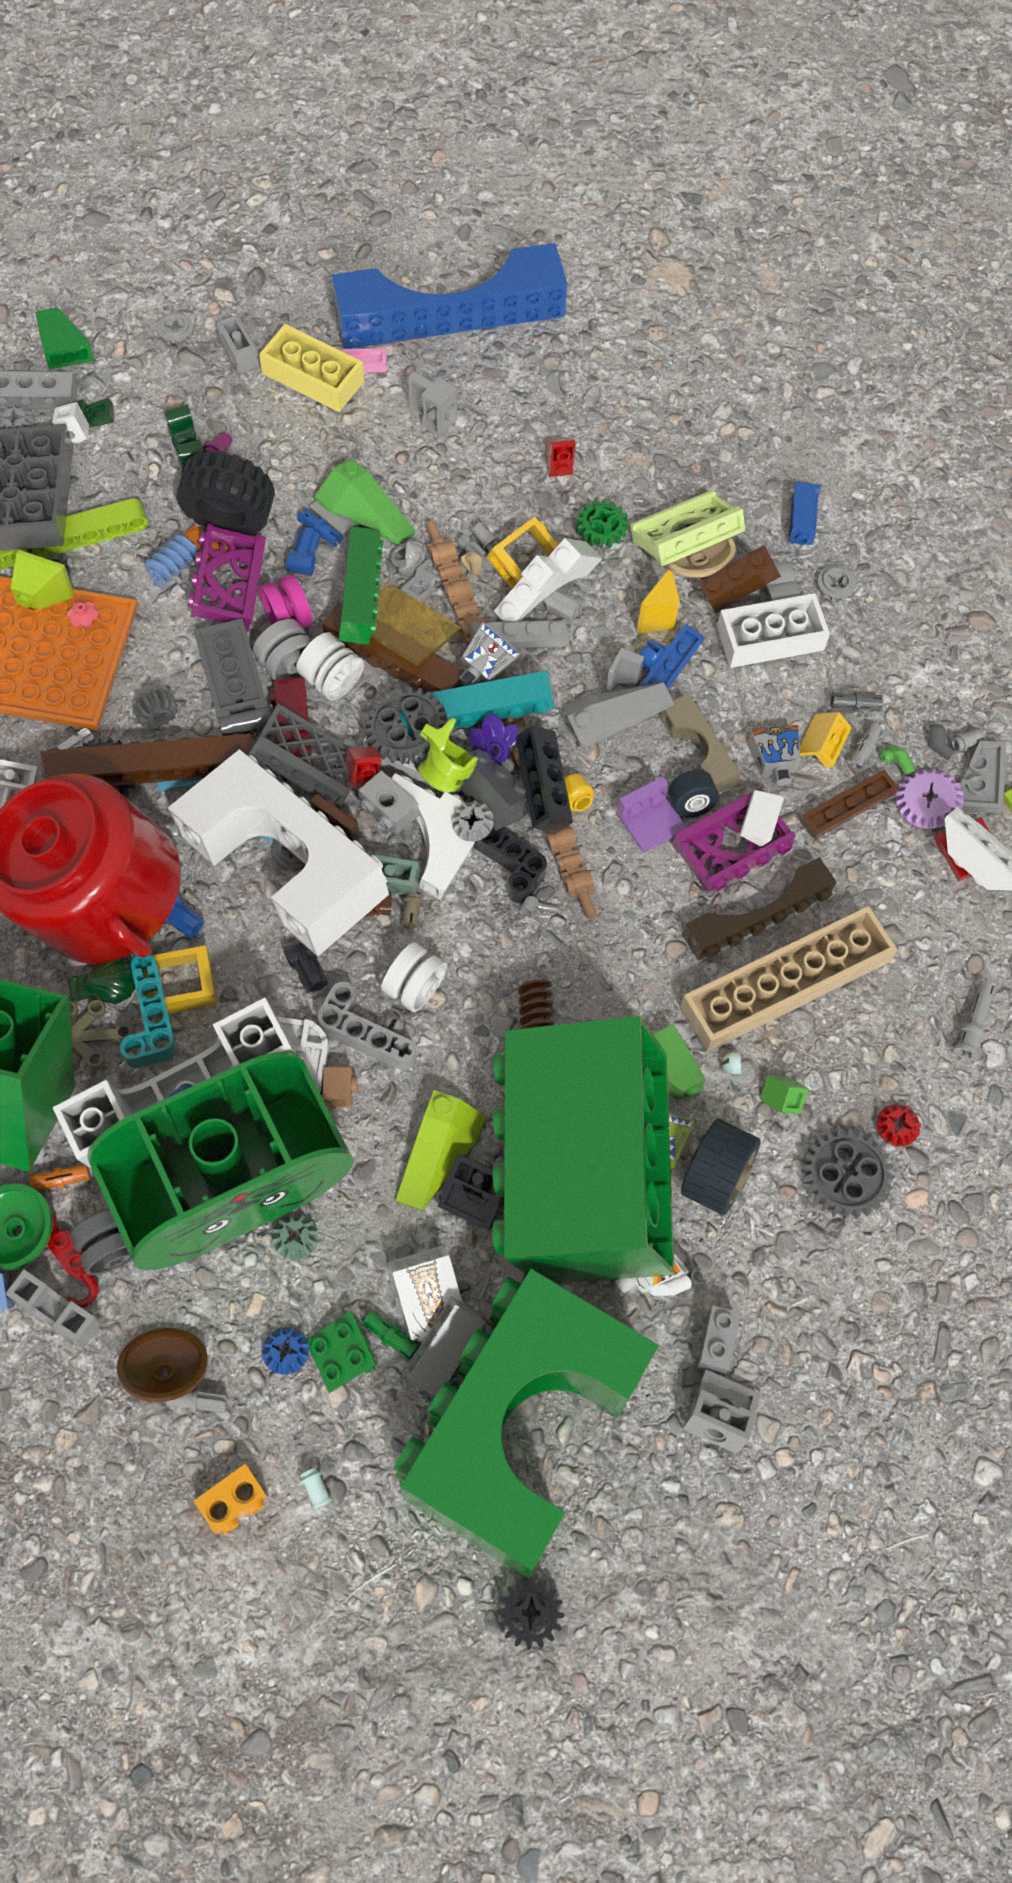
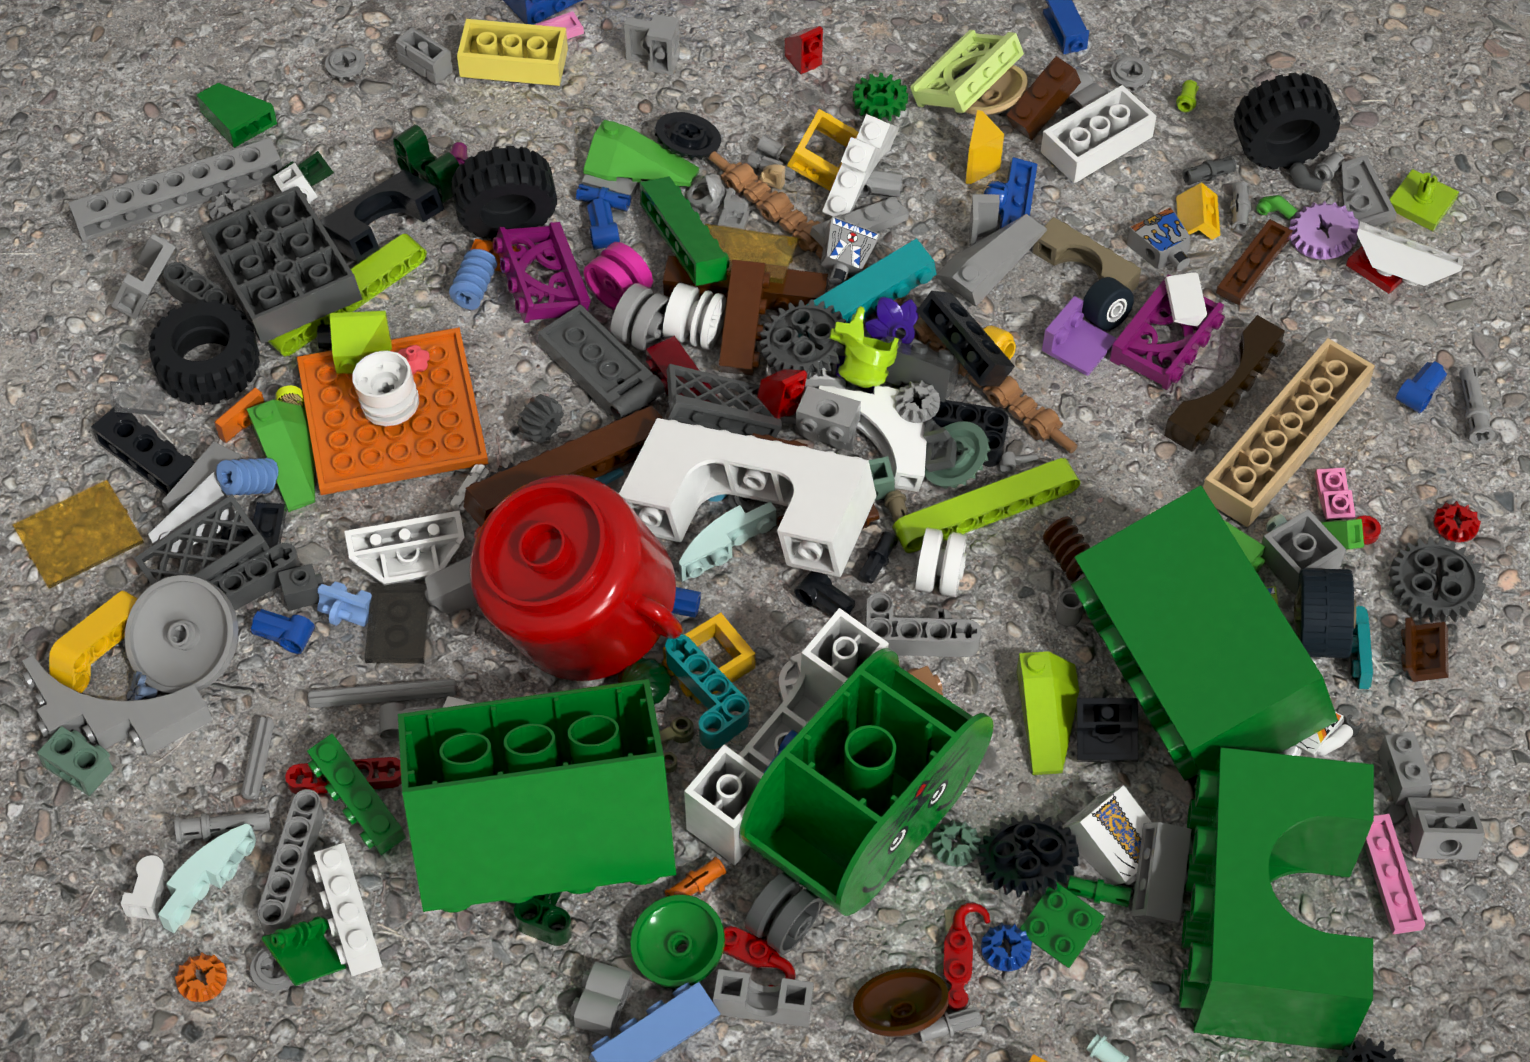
camera: 20 degrees left, 10 degrees down
(37, 633) = (386, 388): none -> white wheel
(97, 472) = (398, 194): none -> black arch
(239, 878) = (715, 542): none -> light aqua slope
(241, 1340) = (959, 954): none -> red piece
(368, 683) = (743, 316): none -> reddish brown brick
(369, 1269) = (1028, 855): none -> black gear
(370, 948) = (878, 557): none -> black axle
(431, 493) = (687, 135): none -> black gear
(473, 870) = (941, 447): none -> dark grey slope
(486, 866) = (974, 448): none -> sand green gear
(490, 937) = (988, 503): none -> lime beam
(653, 1433) = (1392, 877): none -> bright pink plate
(738, 1095) = (1299, 545): none -> light grey brick
(744, 1206) = (1363, 666): none -> teal hinge
(799, 1236) = (1425, 650): none -> reddish brown bracket
(801, 1053) = (1334, 494): none -> bright pink slope
(815, 1098) = (1371, 529): none -> red tile
(872, 628) = (1187, 101): none -> lime pin
(930, 987) = (1419, 390): none -> blue piece
(942, 684) = (1286, 120): none -> black tyre

